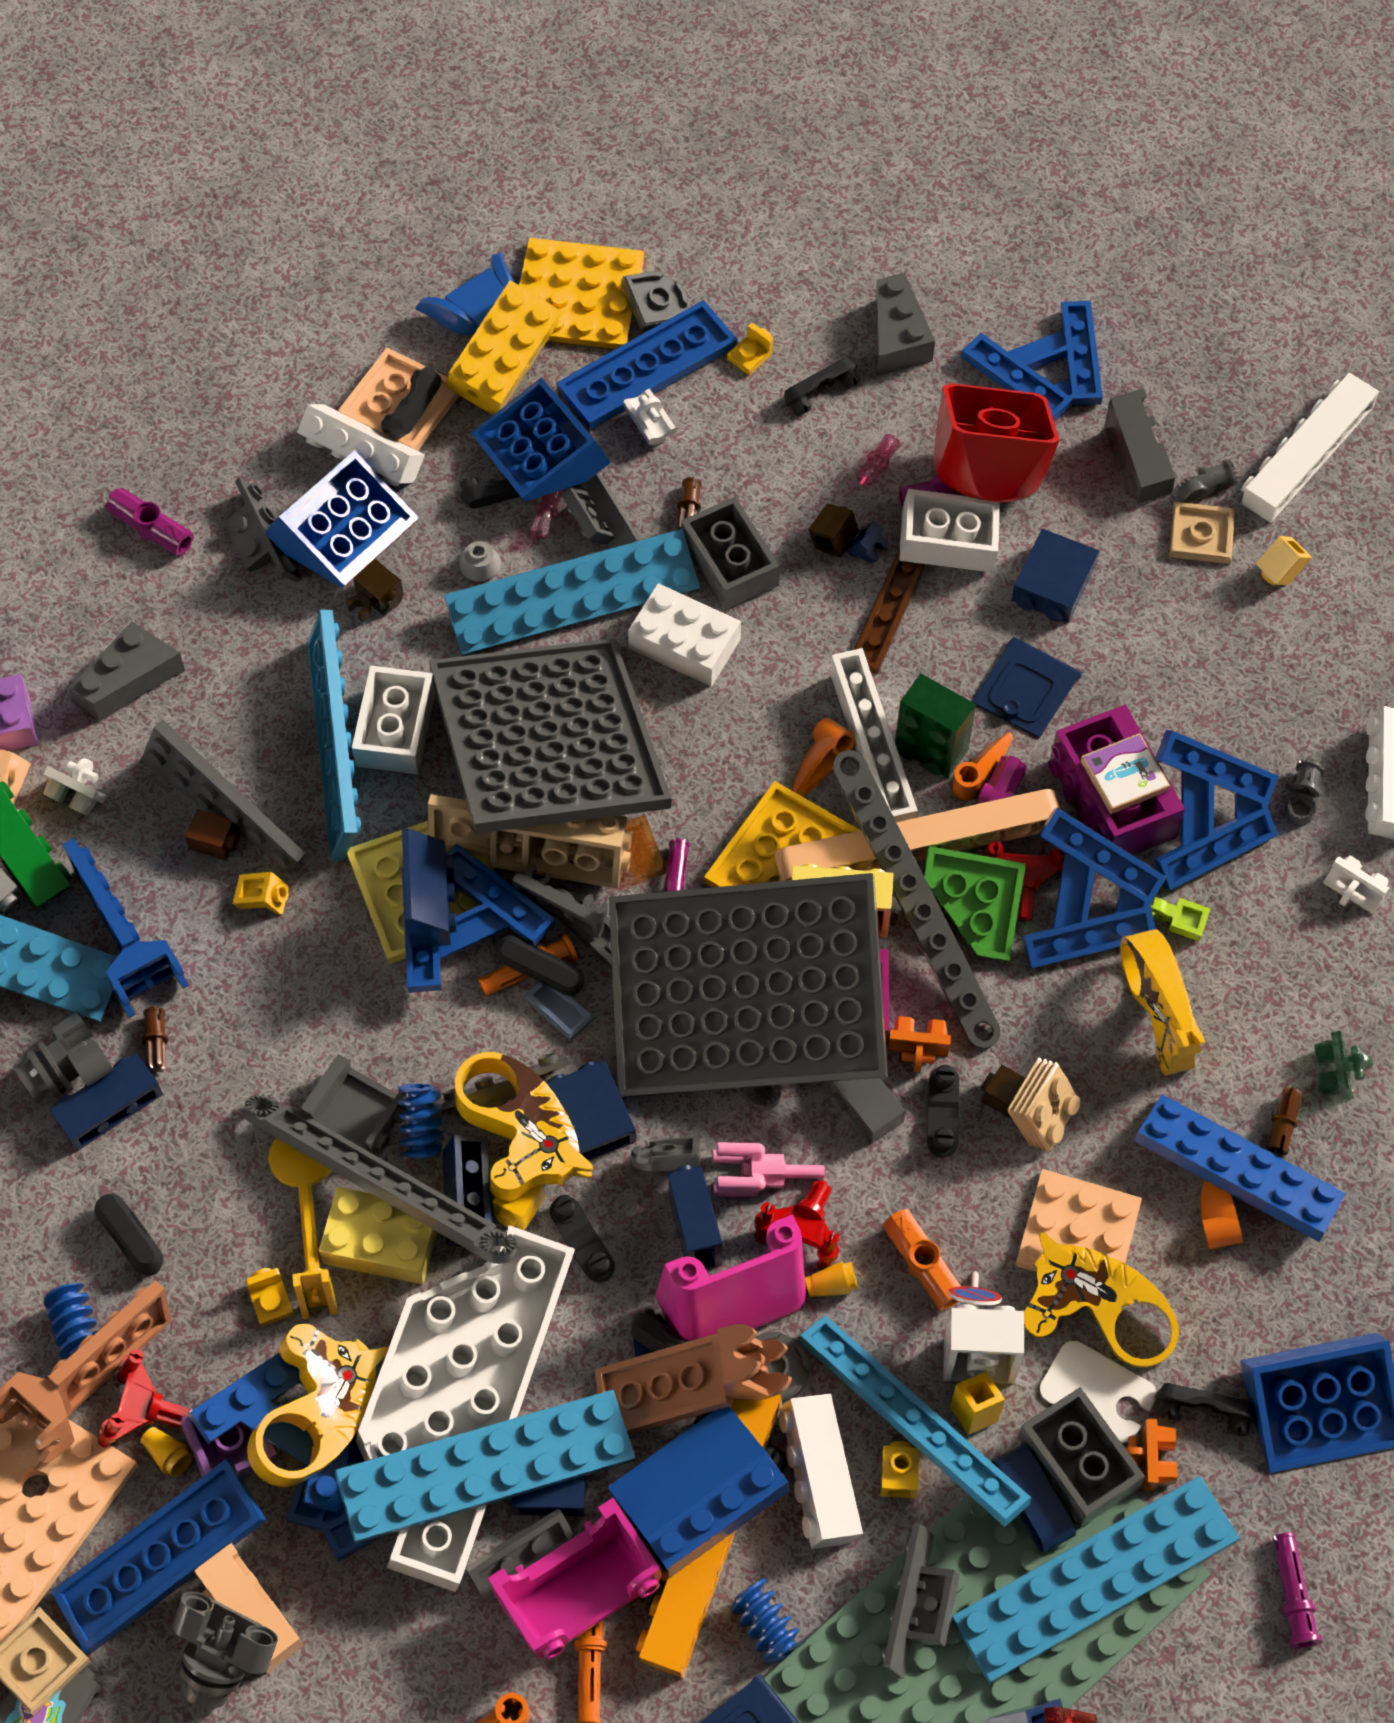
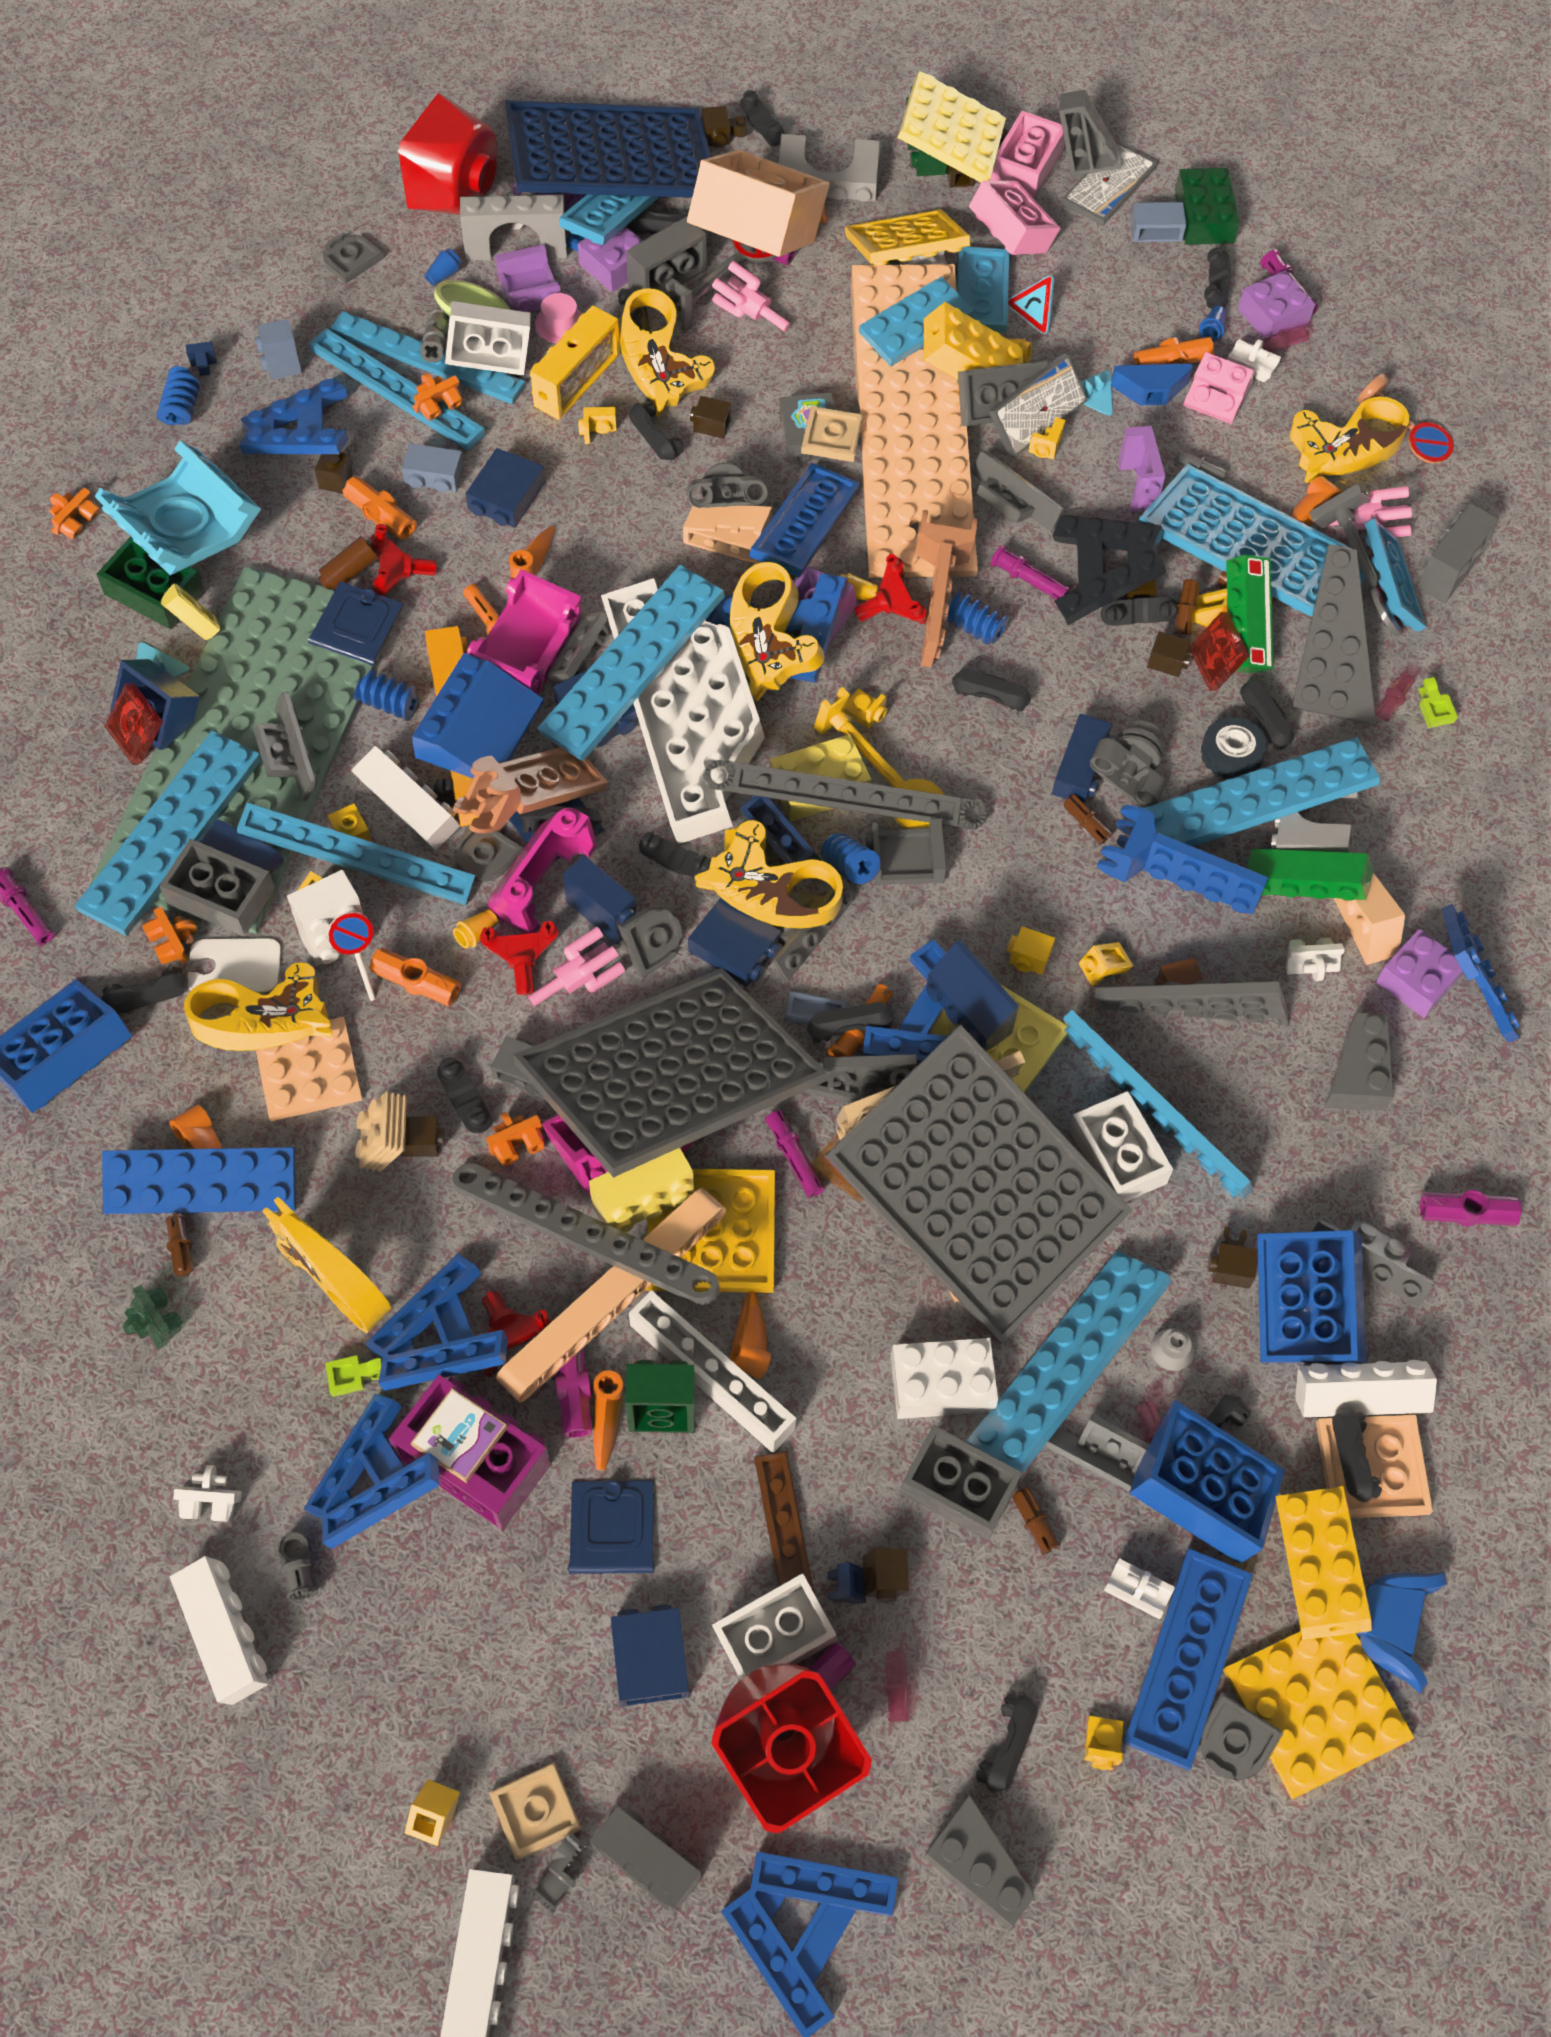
camera: 145 degrees right, 0 degrees up
(320, 940) = (1030, 950): none -> yellow brick
(978, 897) = (535, 1274): bright green plate -> none

